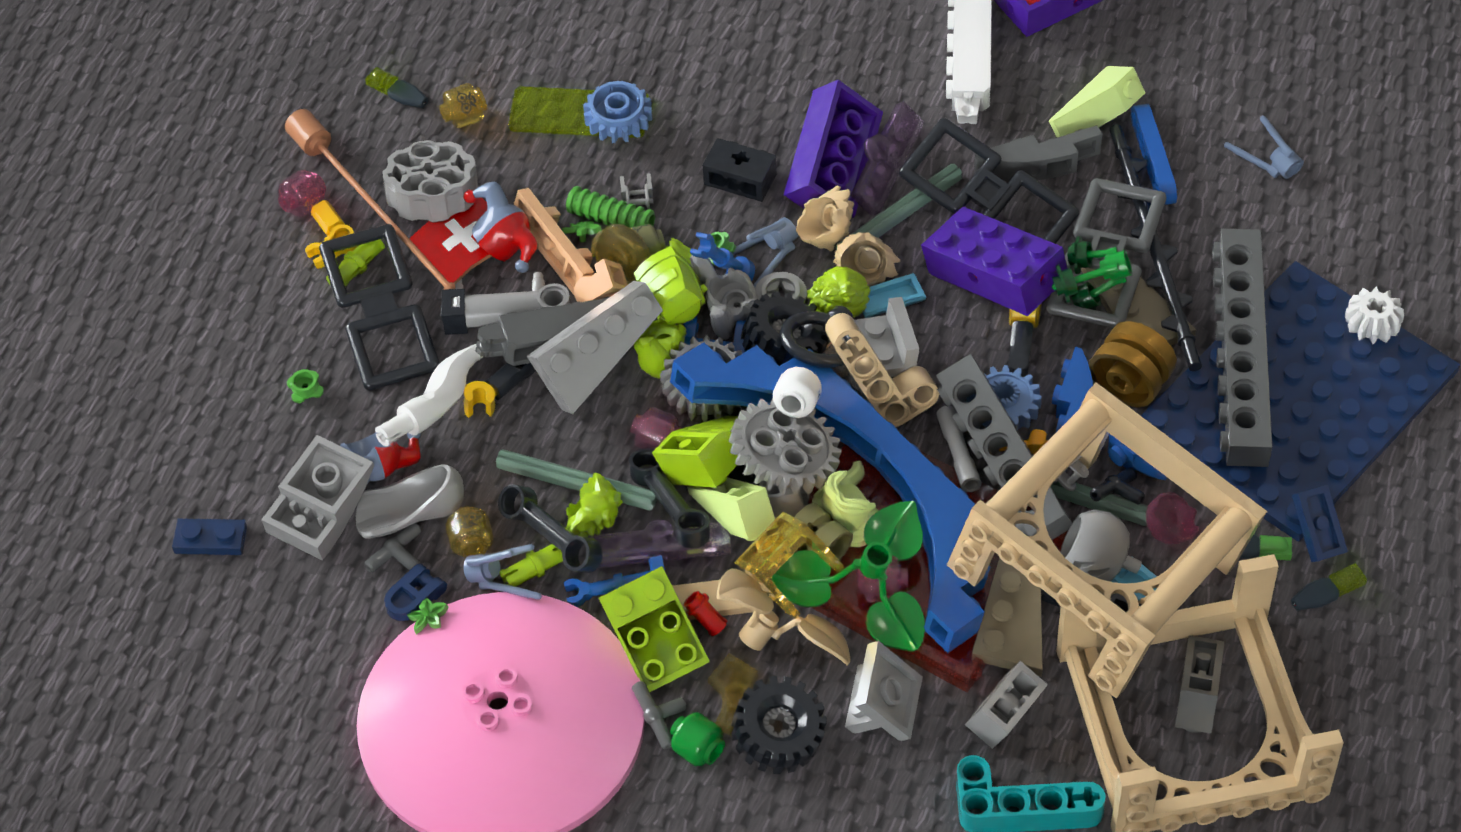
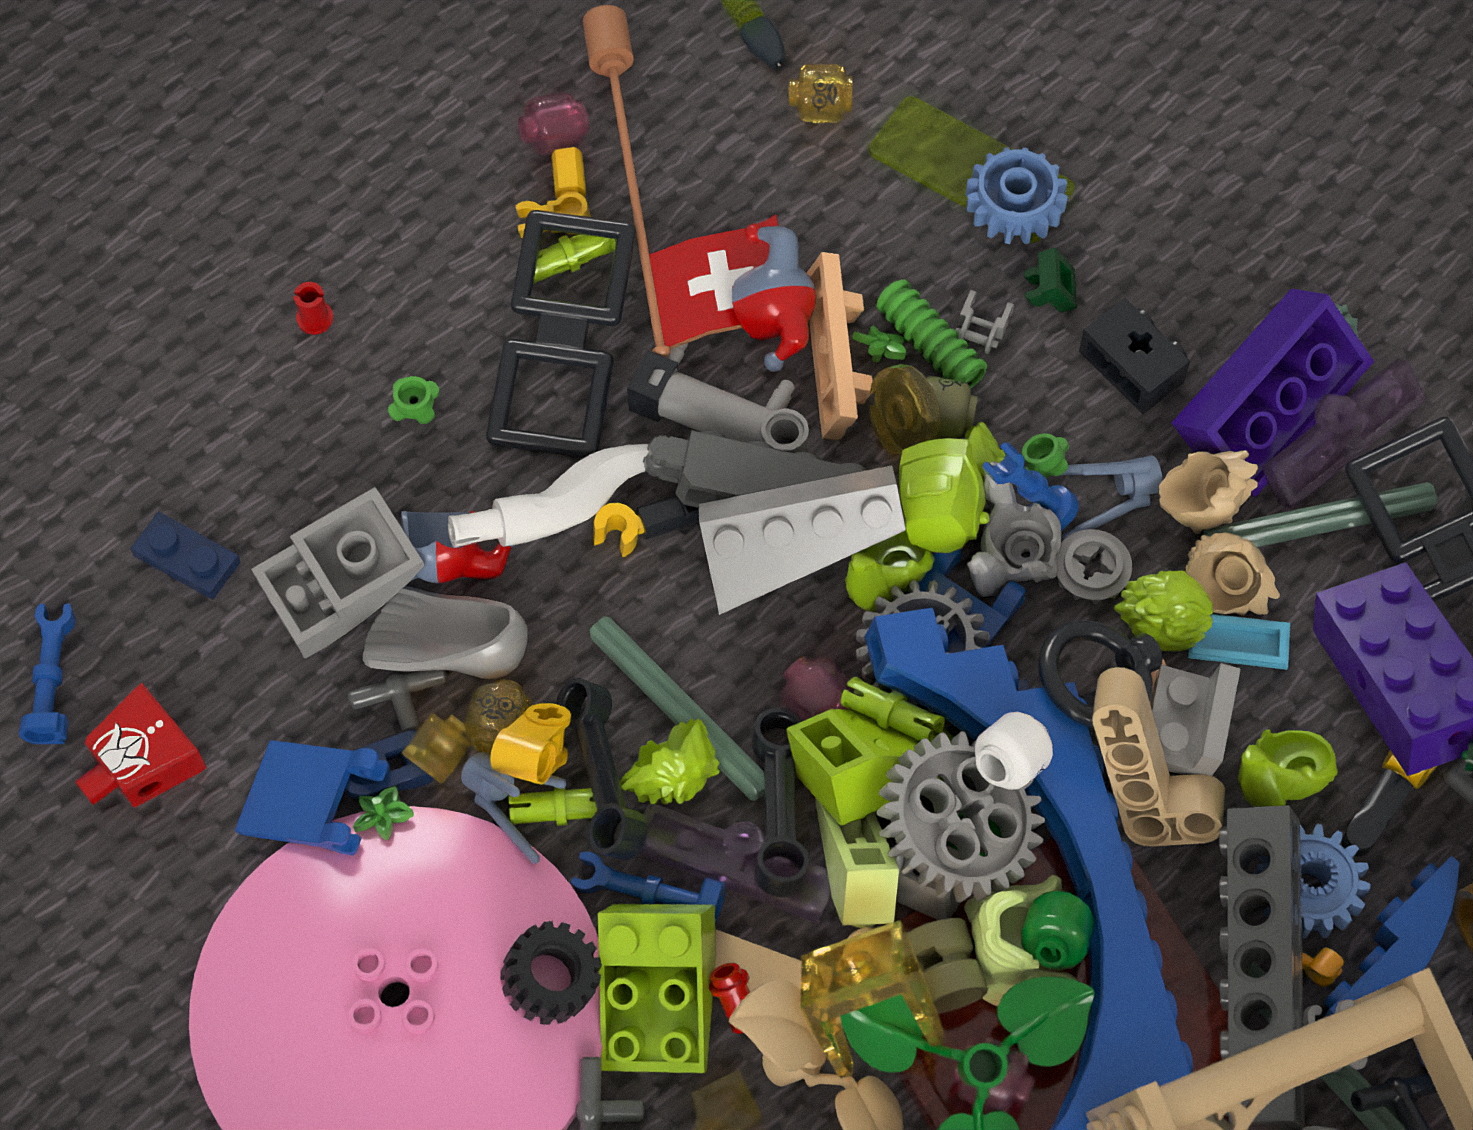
camera: 25 degrees right, 10 degrees up
(176, 669) = (43, 724): none -> blue piece
(210, 364) = (313, 313): none -> red pin
(251, 654) = (138, 752): none -> torso
(371, 629) = (301, 791): none -> blue flag
(429, 180) = (719, 182): light grey connector -> none
(440, 564) = (438, 746): none -> clear yellow tile
(501, 531) = (532, 744): none -> yellow piece
(586, 661) = (537, 999): none -> black tyre
(602, 284) = (866, 443): light nougat leg -> none
(667, 149) = (1055, 280): none -> dark green tile
(708, 414) = (891, 710): none -> lime pin
(765, 321) = (1046, 604): black bush -> none
(875, 481) = (1057, 930): none -> green head
(955, 344) = (1285, 767): none -> lime hair
(963, 463) = (1202, 952): light grey piece -> none

